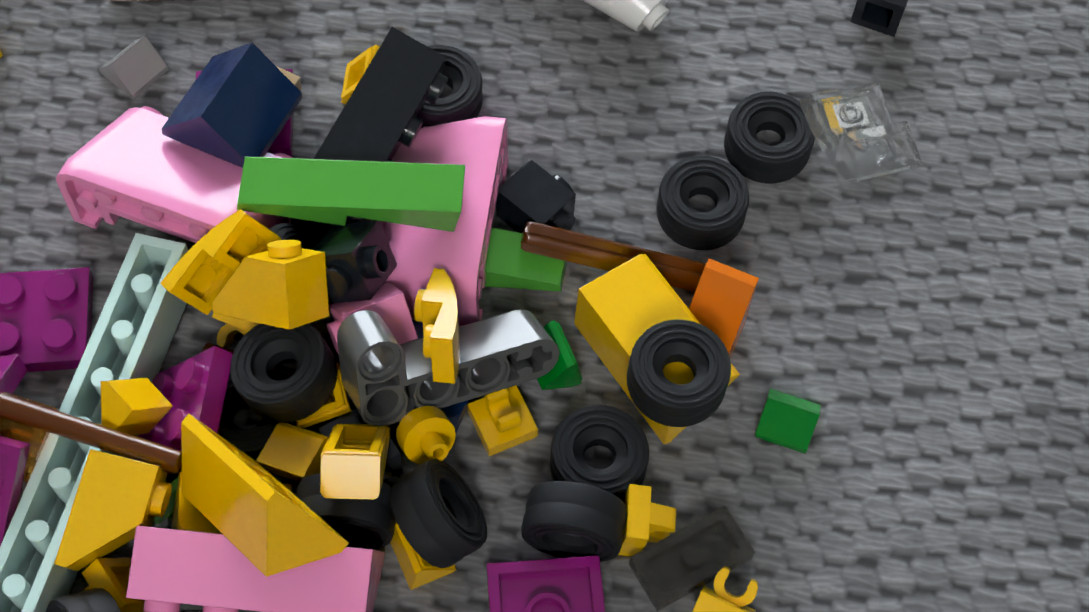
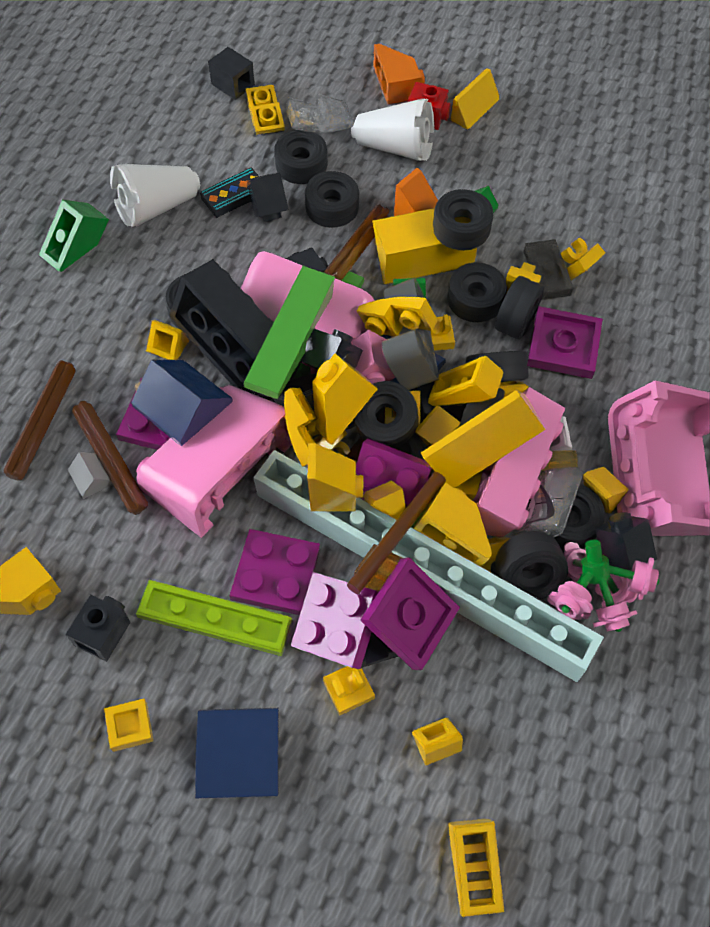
camera: 70 degrees left, 0 degrees up
(117, 310) = (332, 480): none -> yellow slope
(167, 71) = (110, 458): none -> reddish brown axle
(425, 434) = (447, 358): yellow tile -> none
(659, 112) = (267, 196): none -> black brick
(665, 76) = (228, 193): none -> black tile
(847, 64) = (264, 109): none -> yellow slope
(881, 256) = (397, 129): none -> white cone
(964, 283) = (438, 99): none -> red brick
(1008, 220) = (396, 73): none -> orange slope
(1021, 354) = (475, 100): none -> yellow slope

